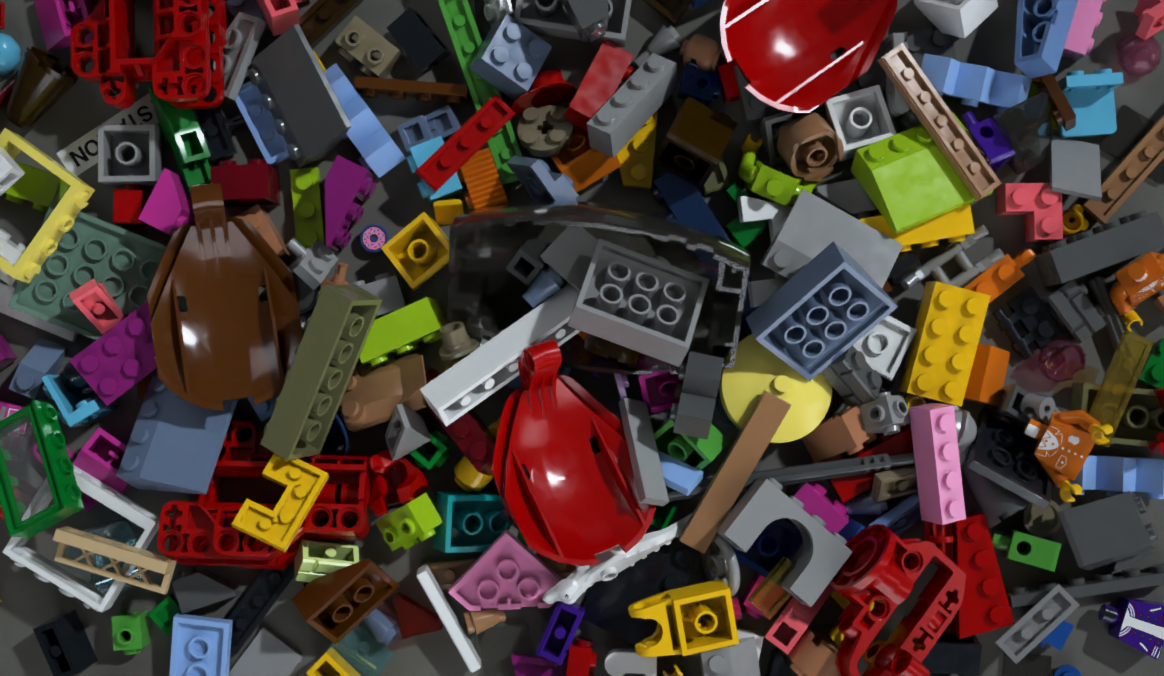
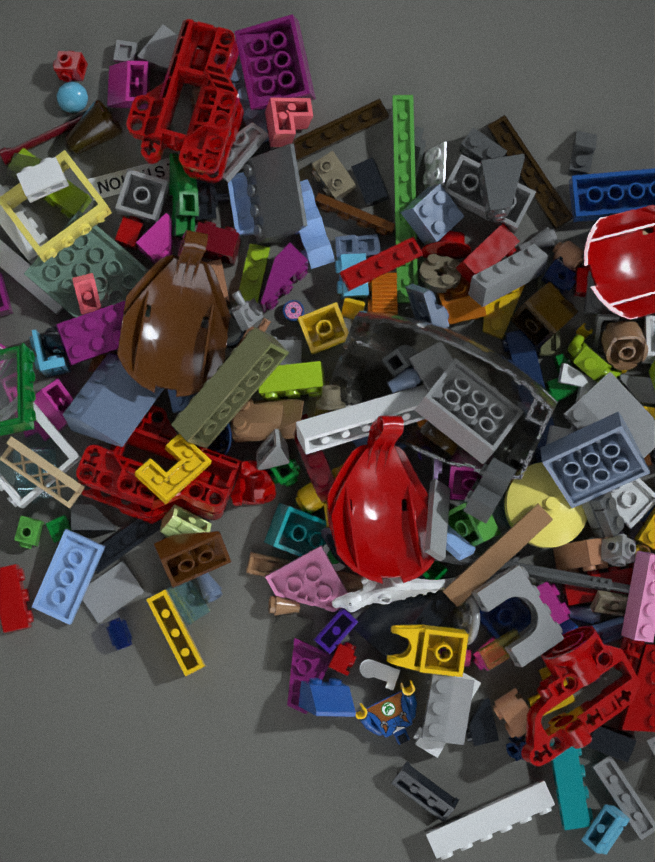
camera: 20 degrees right, 5 degrees down
(42, 359) = (21, 327): sand blue slope -> none
(409, 522) = (254, 517): lime brick -> none
(414, 617) = (233, 589): clear red slope -> none
(448, 618) = (259, 596): white tile -> none
(794, 621) = (509, 677): coral slope -> none

